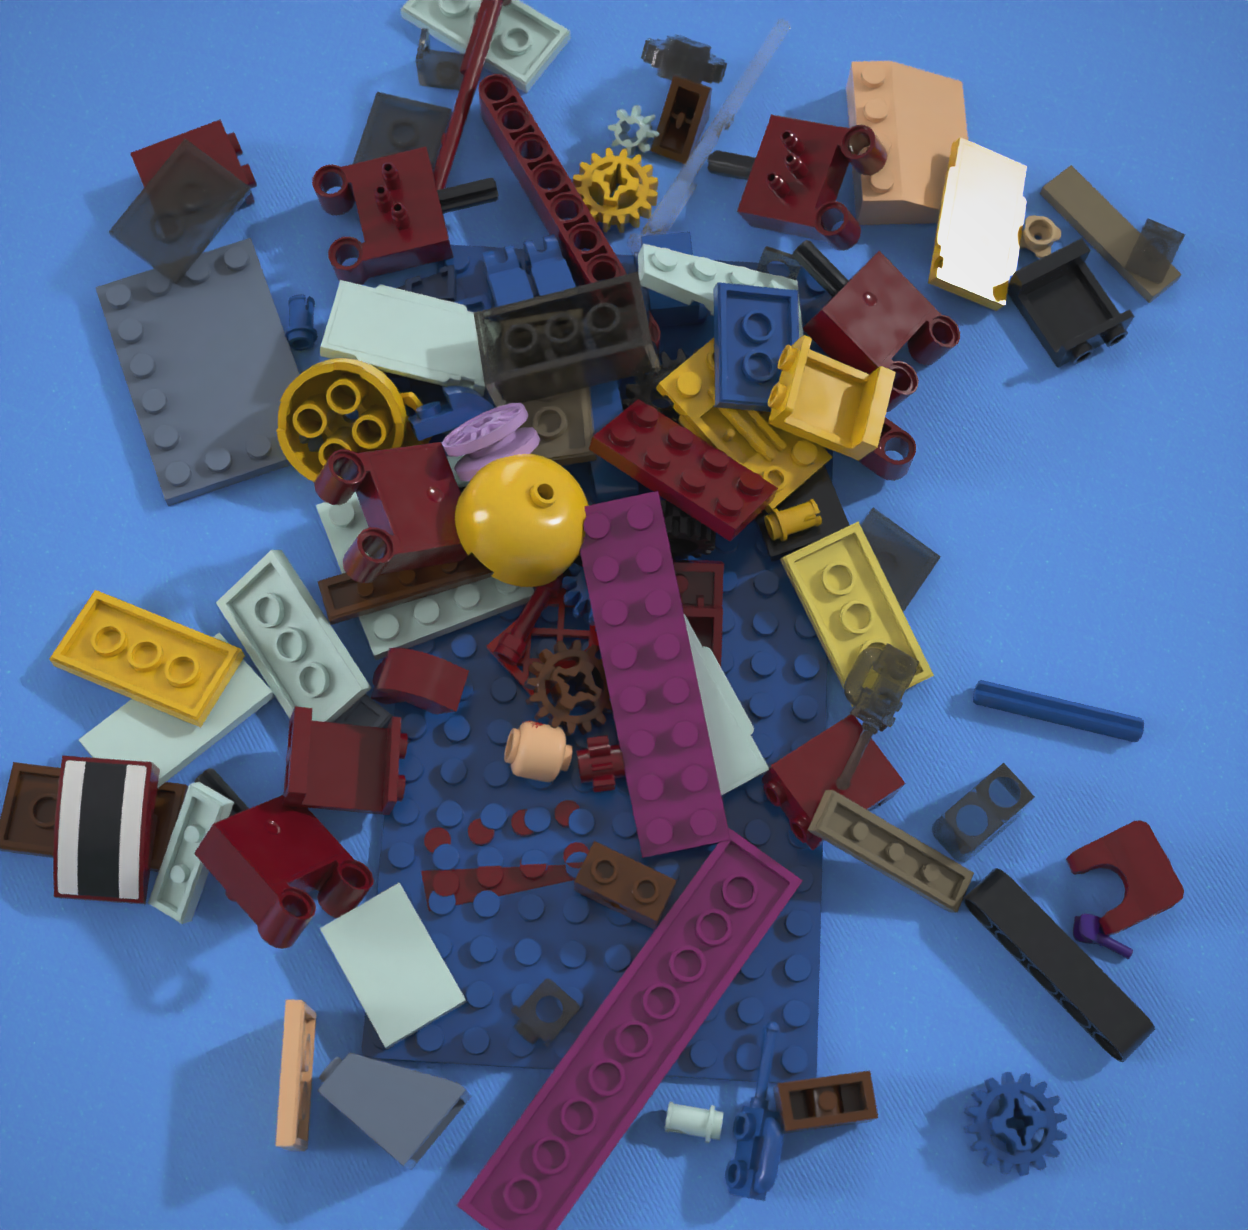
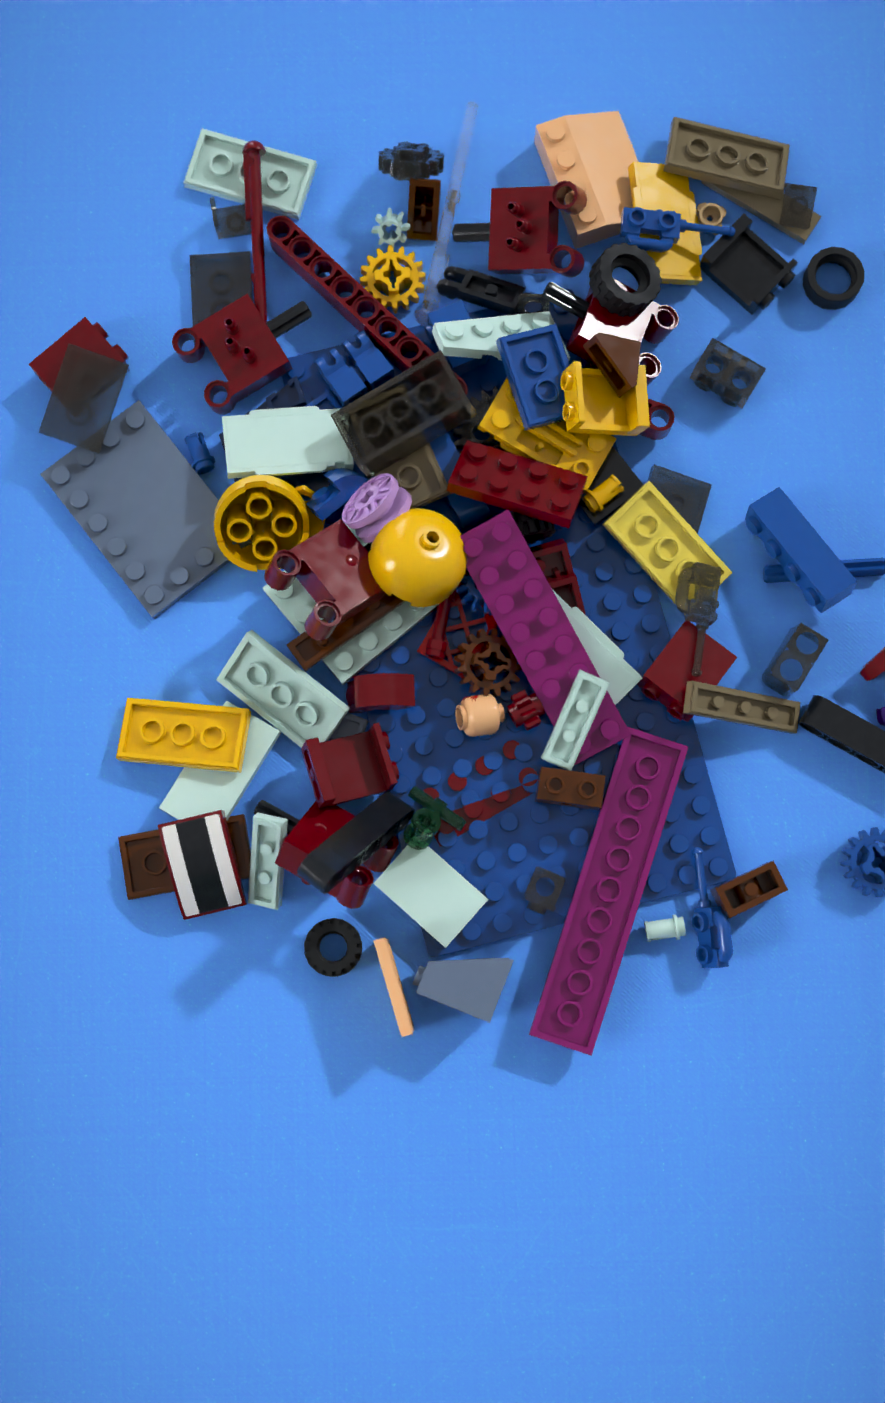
camera: 15 degrees left, 10 degrees up
(217, 978) = (313, 953): none -> black tyre
(307, 858) = (355, 842): none -> black beam
(417, 865) = (427, 820): none -> clear green piece
(659, 794) = (575, 720): none -> light aqua tile
(719, 232) = (480, 289): none -> black hinge
(858, 350) = (616, 359): none -> reddish brown slope
(925, 252) = (639, 265): none -> black tyre
(973, 217) = (663, 224): none -> blue piece
(1011, 420) = (731, 367): none -> clear smoke brick
(1031, 672) = (799, 550): none -> blue brick
(1081, 171) = (726, 158): none -> dark tan tile
(1187, 327) = (843, 258): none -> black tyre

